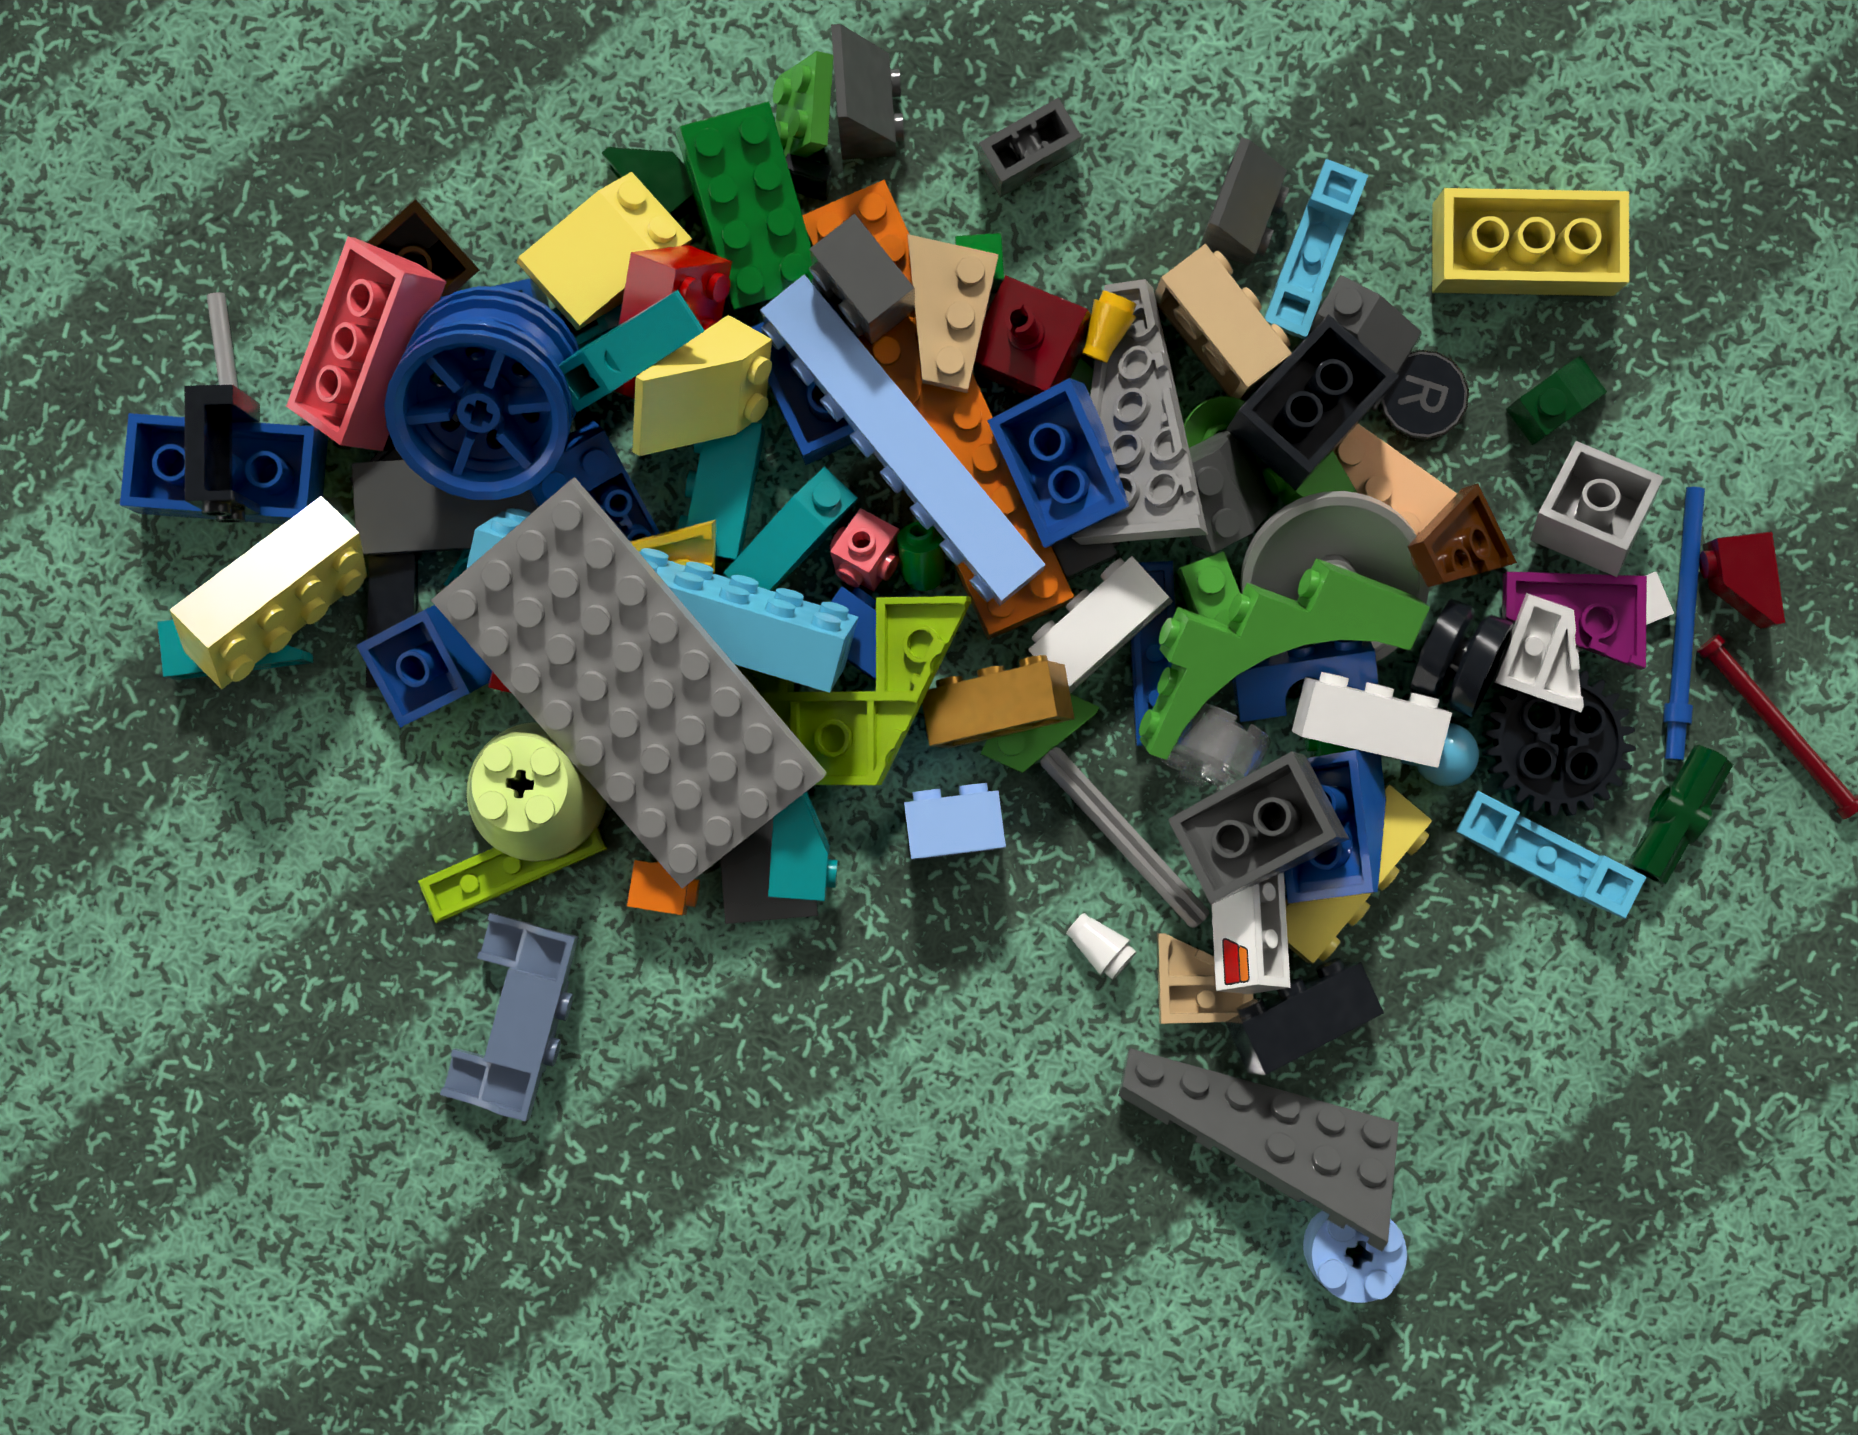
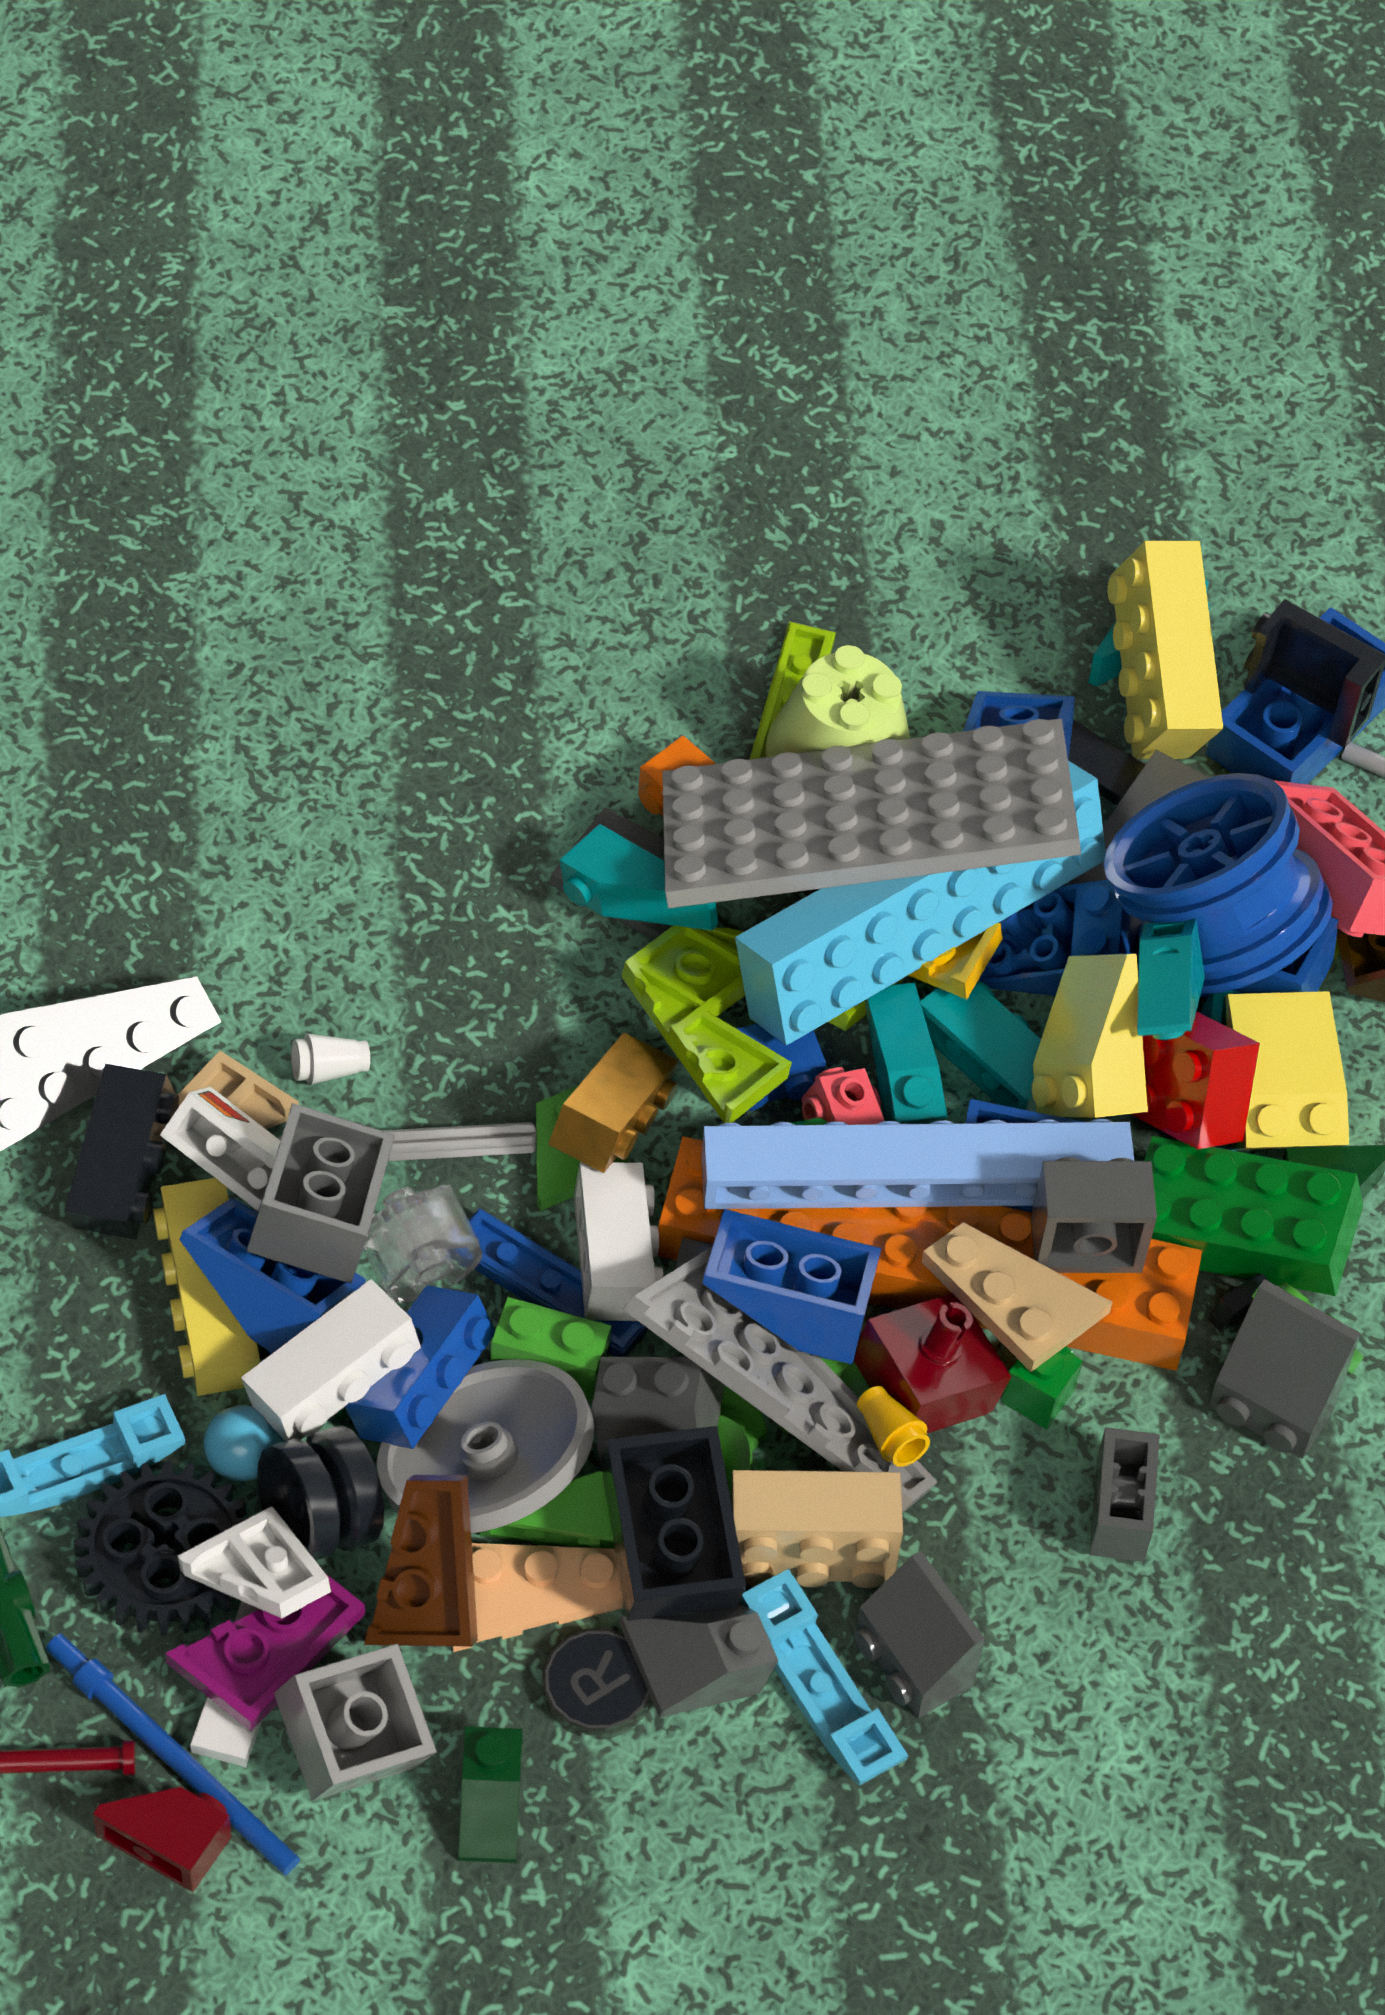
camera: 125 degrees right, 30 degrees down
(524, 1022) = (655, 620): sand blue bracket -> none
(954, 823) = (537, 1003): light blue brick -> none
(1263, 624) = (468, 1391): bright green arch -> none
(1530, 242) = (669, 1873): light yellow brick -> none

